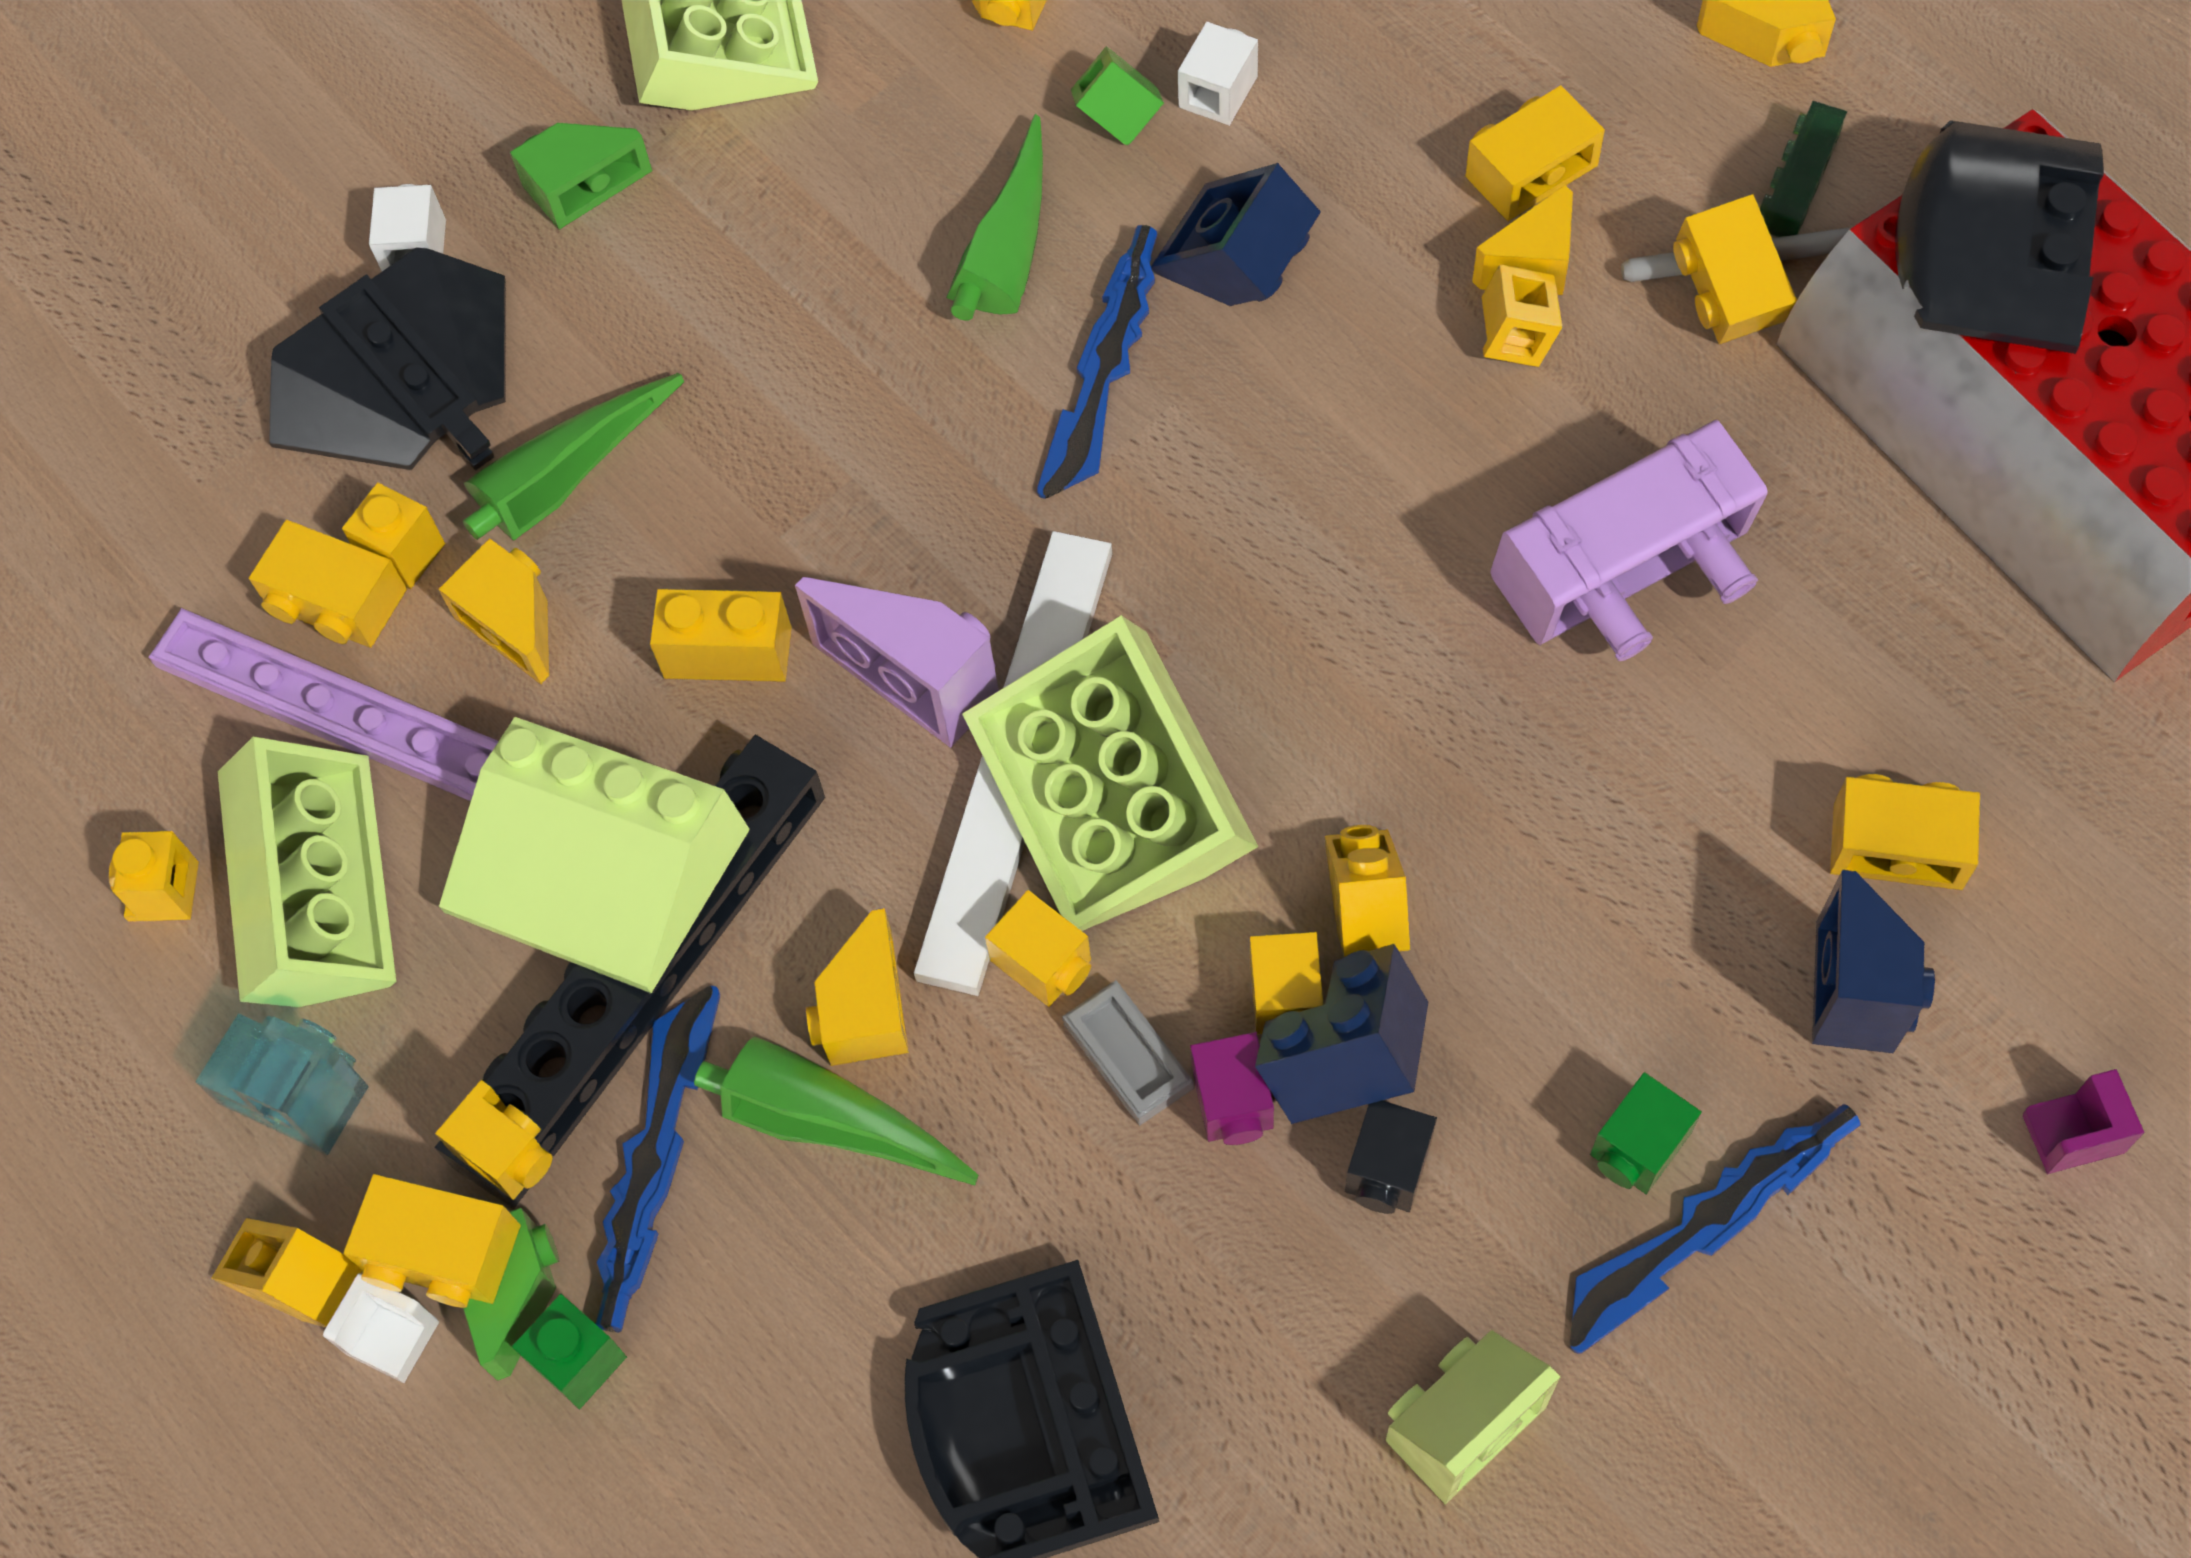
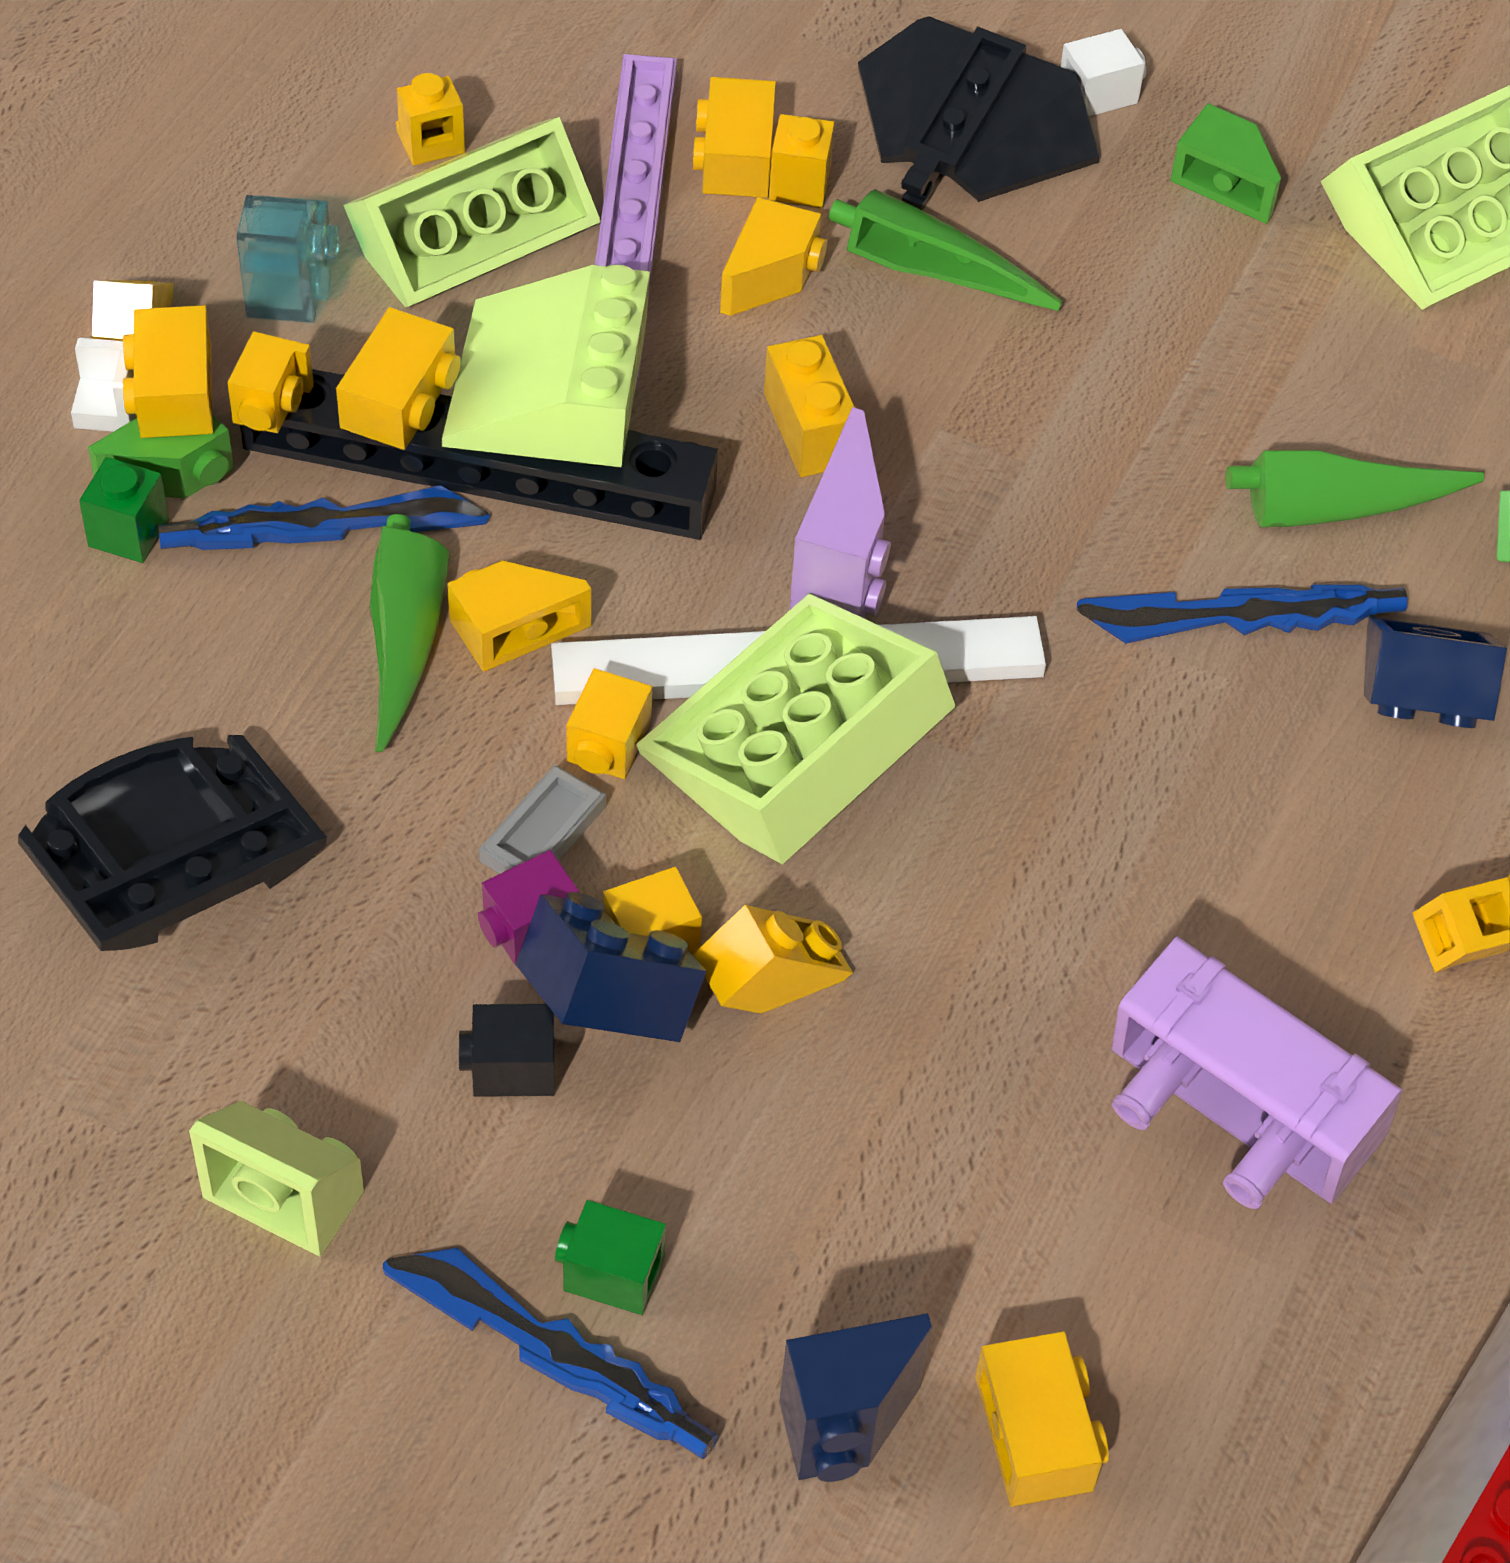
camera: 60 degrees right, 10 degrees down
(547, 1007) = (397, 378): none -> yellow brick

